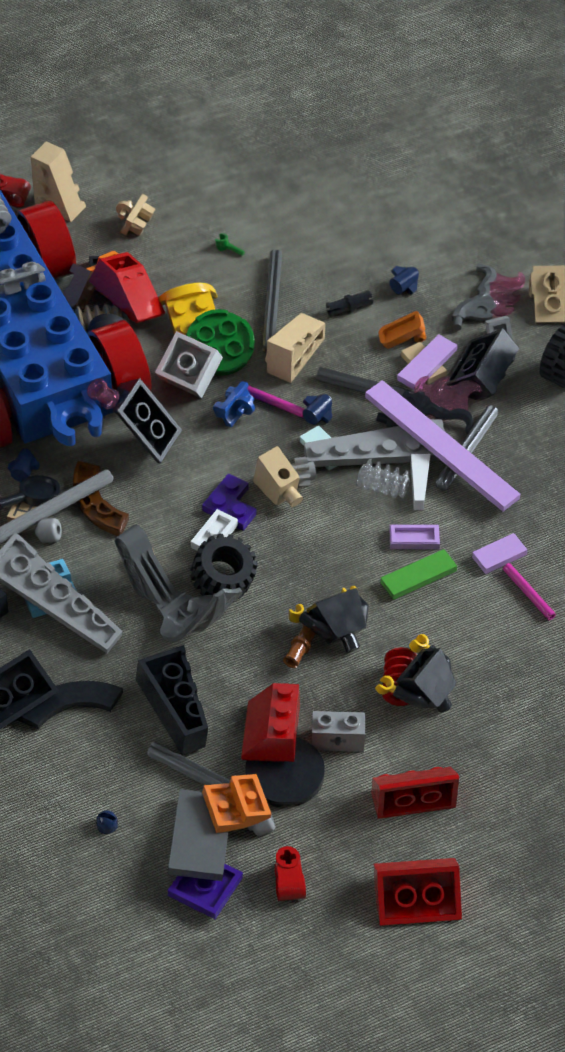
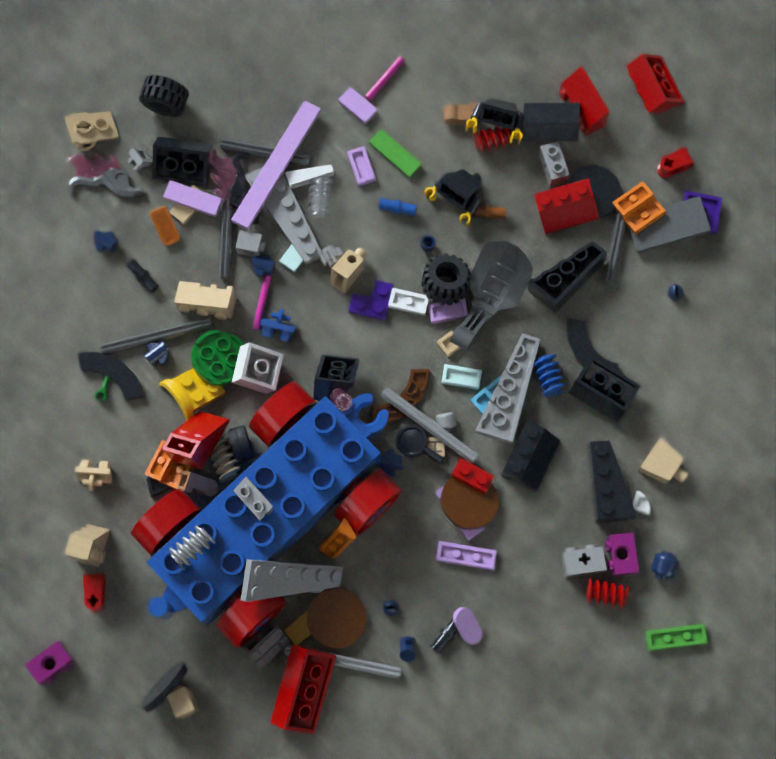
camera: 105 degrees left, 25 degrees up
(56, 643) = (549, 376): none -> blue piece
(96, 563) = (461, 377): none -> light aqua tile
(181, 576) = (444, 313): none -> lavender tile
(245, 260) = (113, 368): none -> black tile
(249, 294) = (157, 353): none -> dark blue piece
(279, 567) = (429, 242): none -> dark blue hinge
(343, 555) = (397, 207): none -> blue pin
(349, 401) = (250, 243): none -> light grey brick
(394, 737) = (551, 122): none -> black slope
(451, 645) = (458, 113): none -> medium nougat leg

